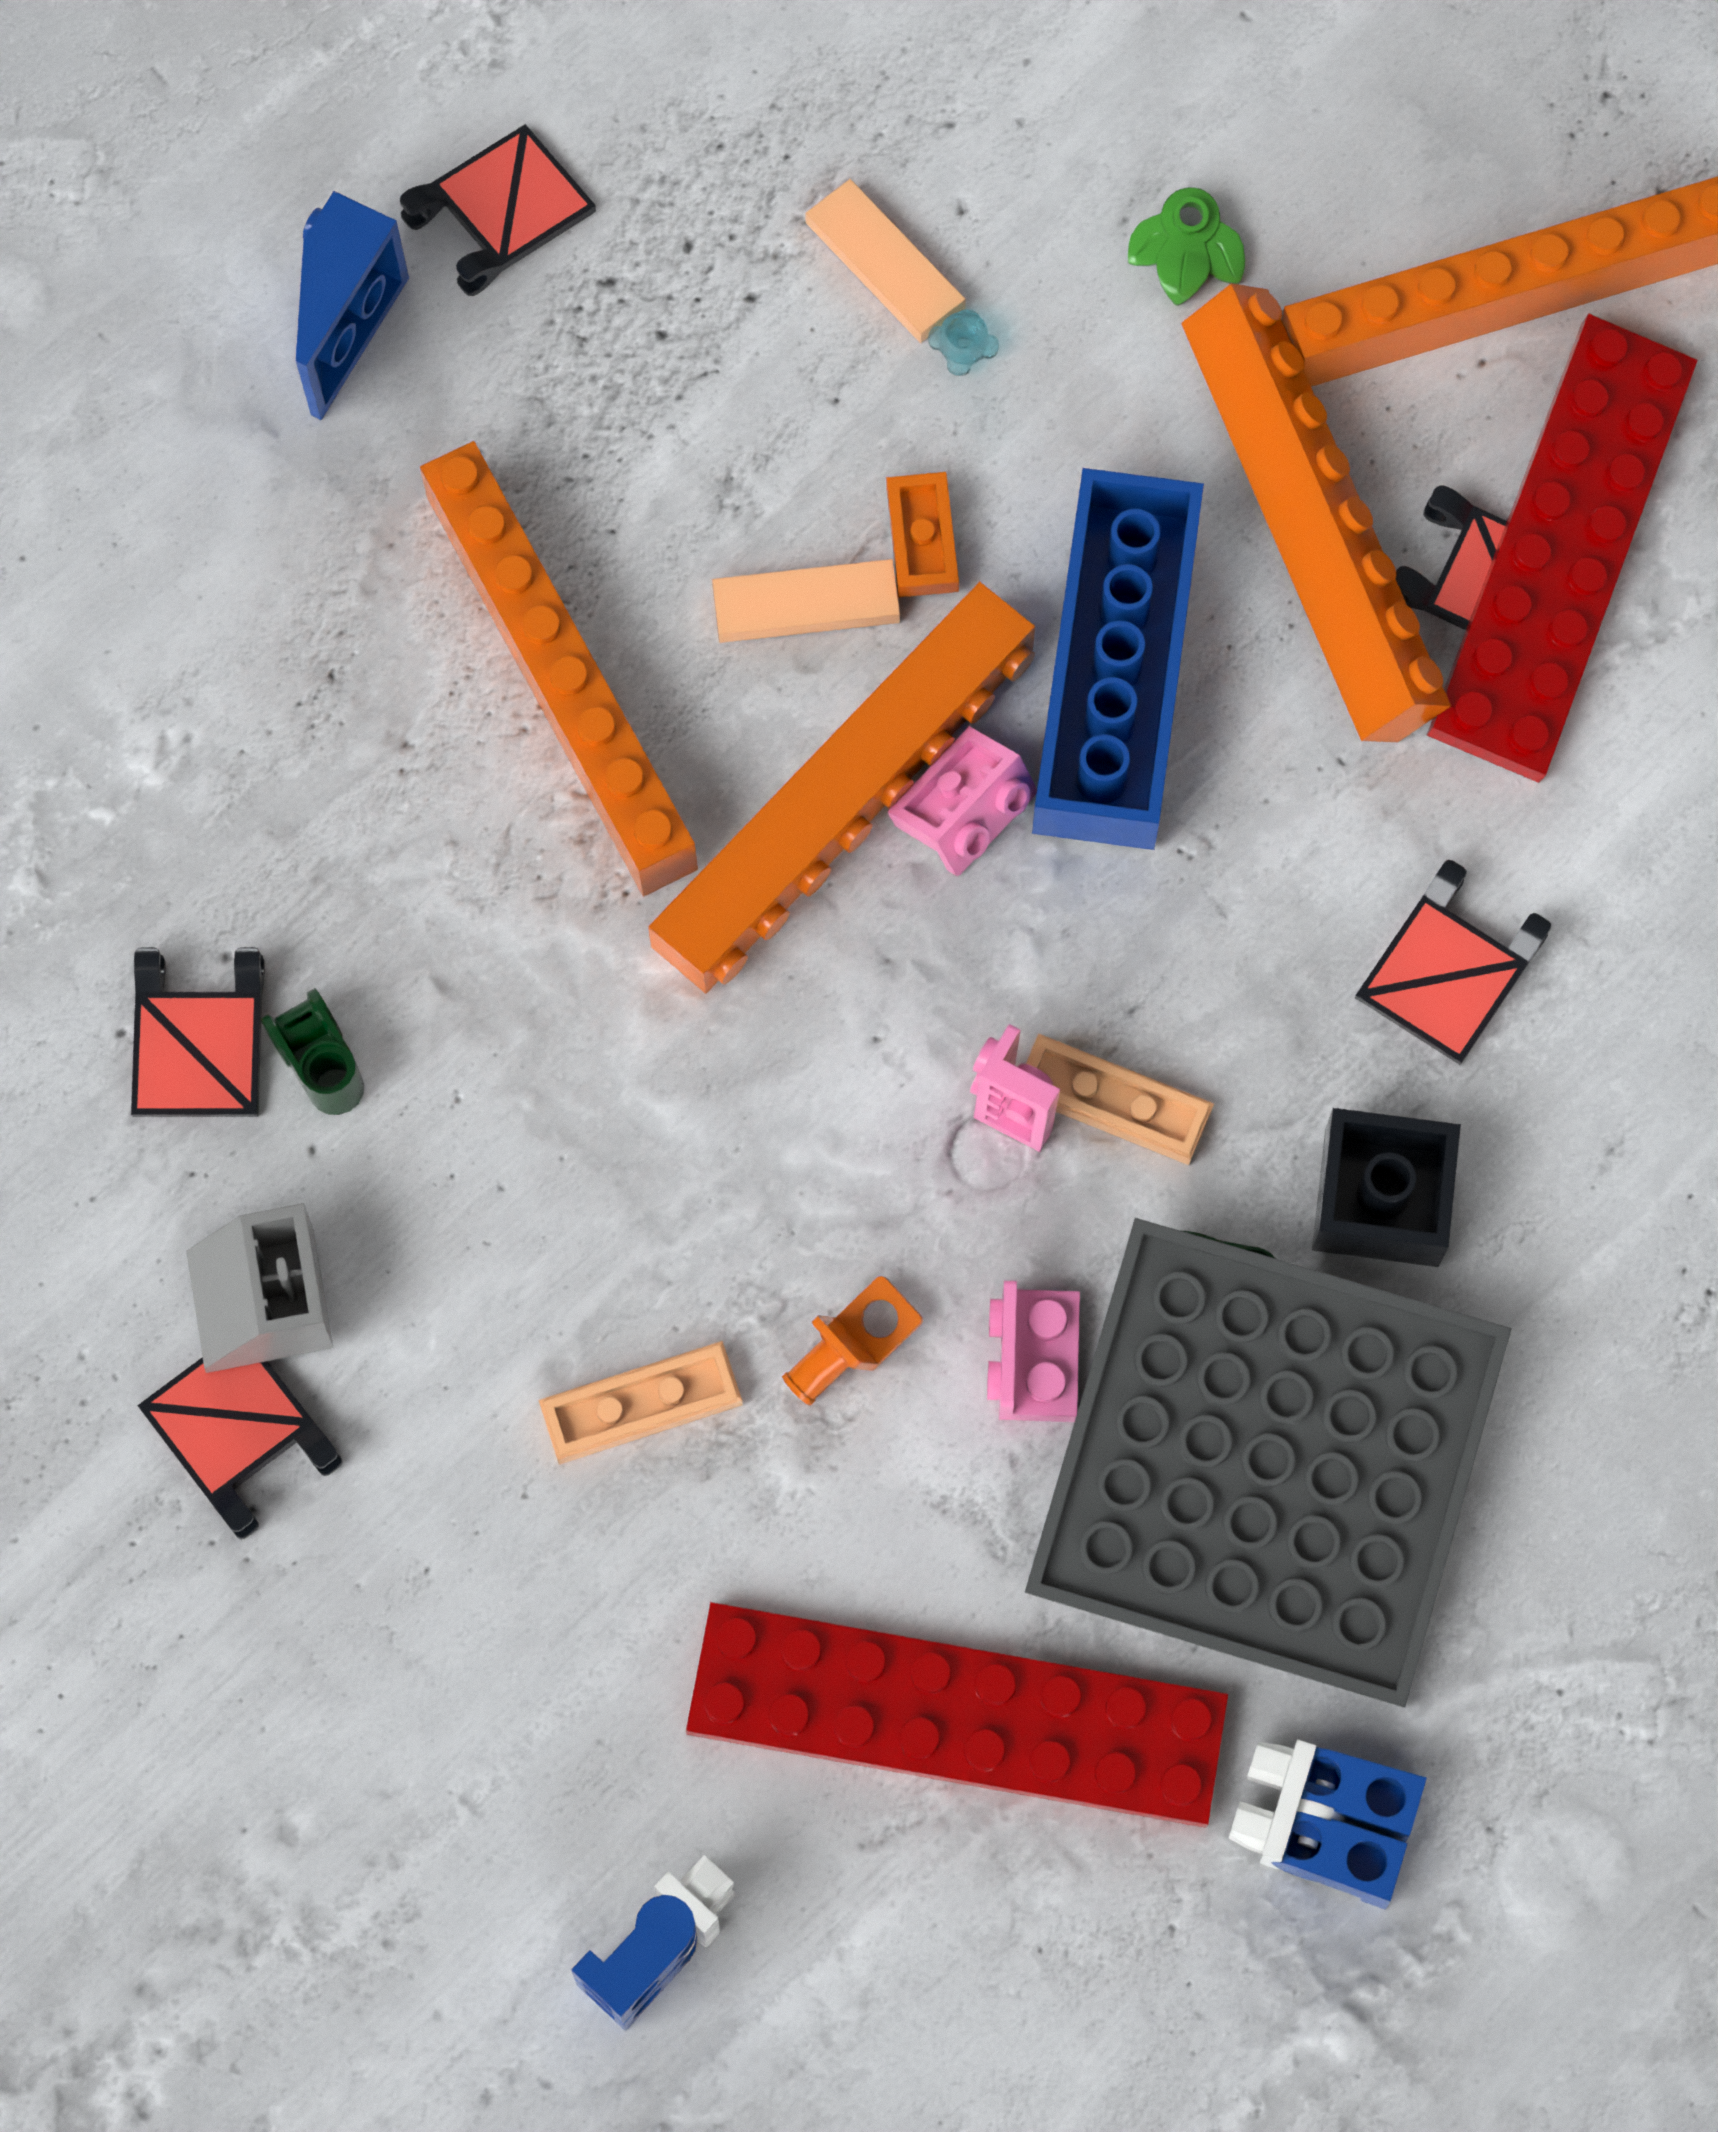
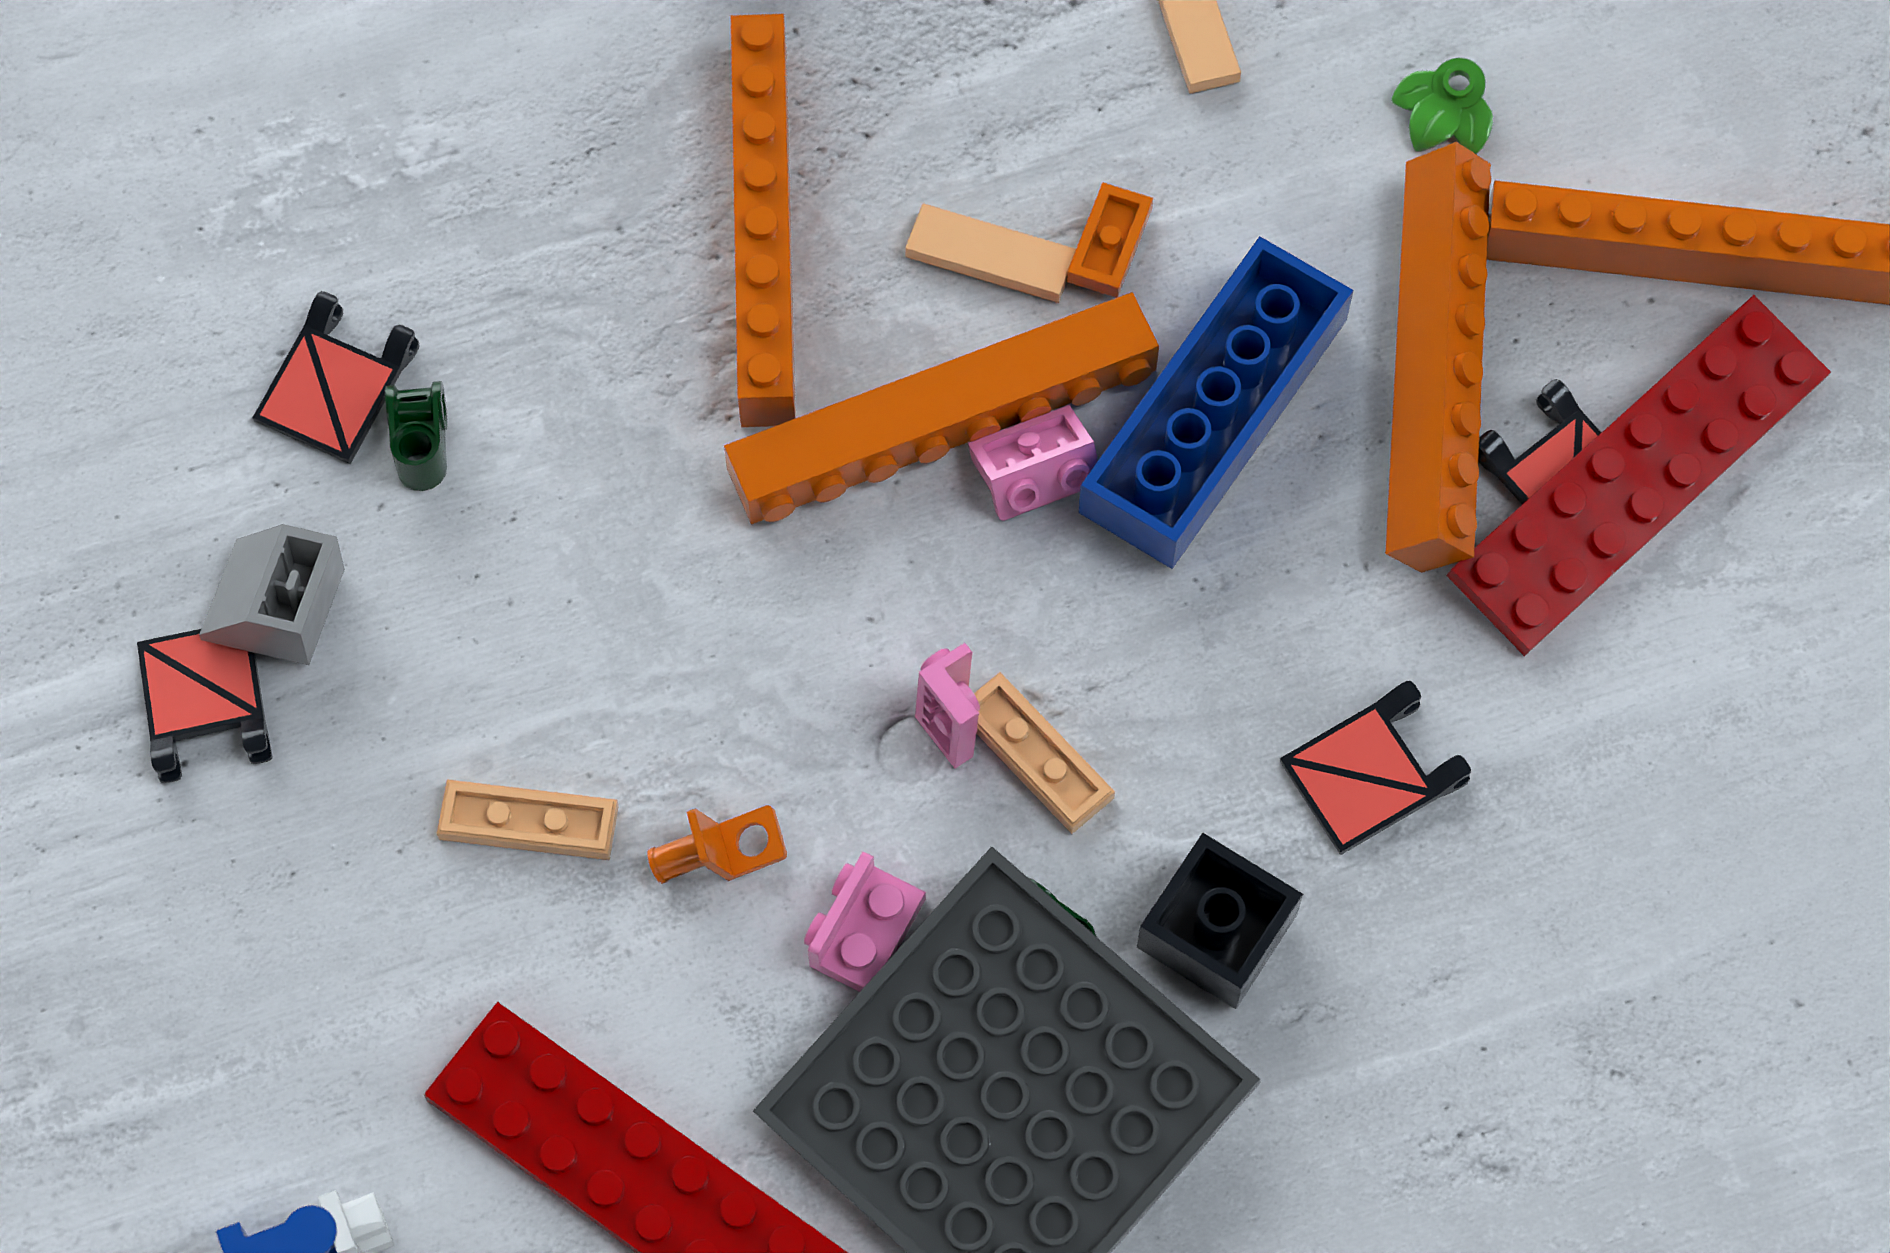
camera: 25 degrees right, 5 degrees down
(963, 325) = (1222, 92): clear light blue plate -> none

